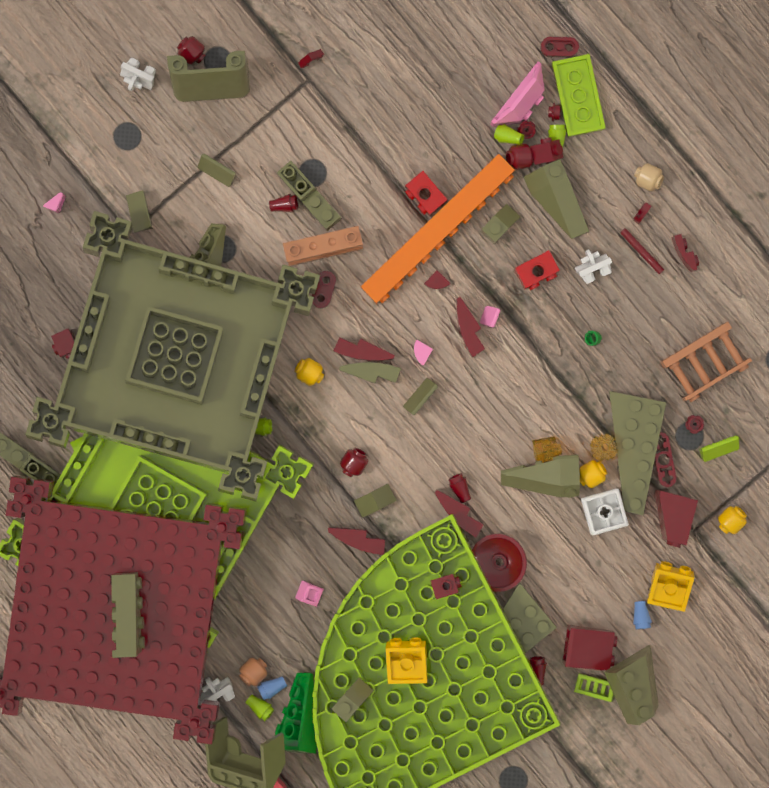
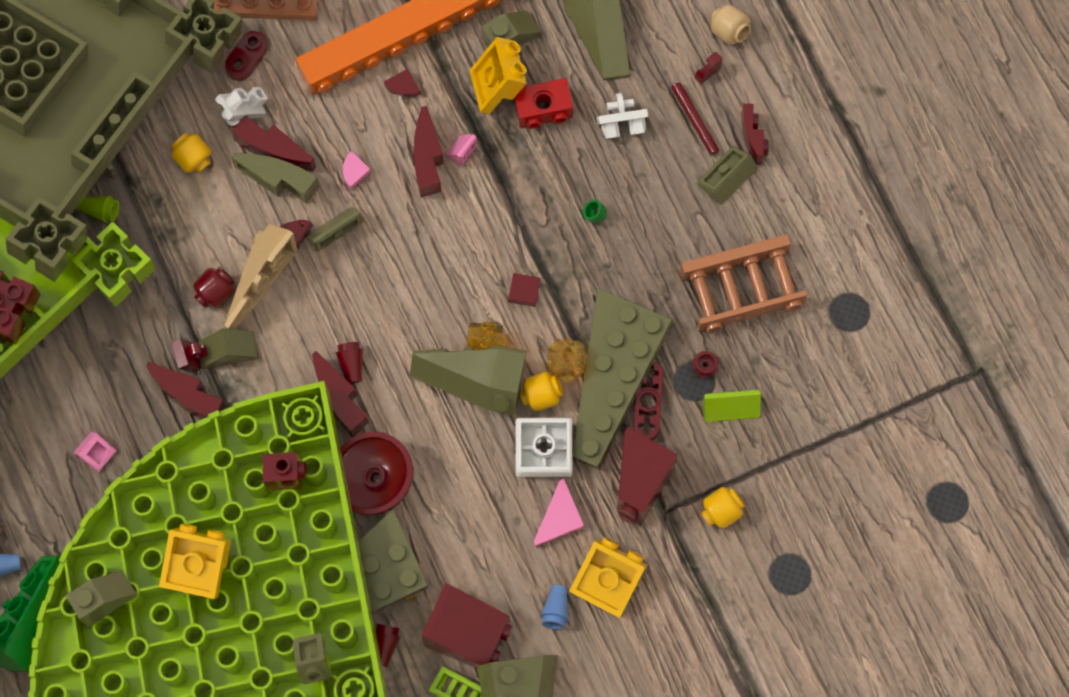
camera: 10 degrees right, 15 degrees down
(334, 328) = (242, 104): none -> white hips
(351, 513) = (188, 354): none -> dark red tile
(382, 435) = (267, 259): none -> tan wedge
(394, 406) = (299, 229): none -> dark red tile
(502, 261) = (498, 74): none -> yellow plate
(502, 706) = (311, 658): none -> olive bracket
(560, 404) = (524, 290): none -> dark red tile
(627, 554) = (560, 517): none -> bright pink tile
(674, 285) = (727, 174): none -> olive slope

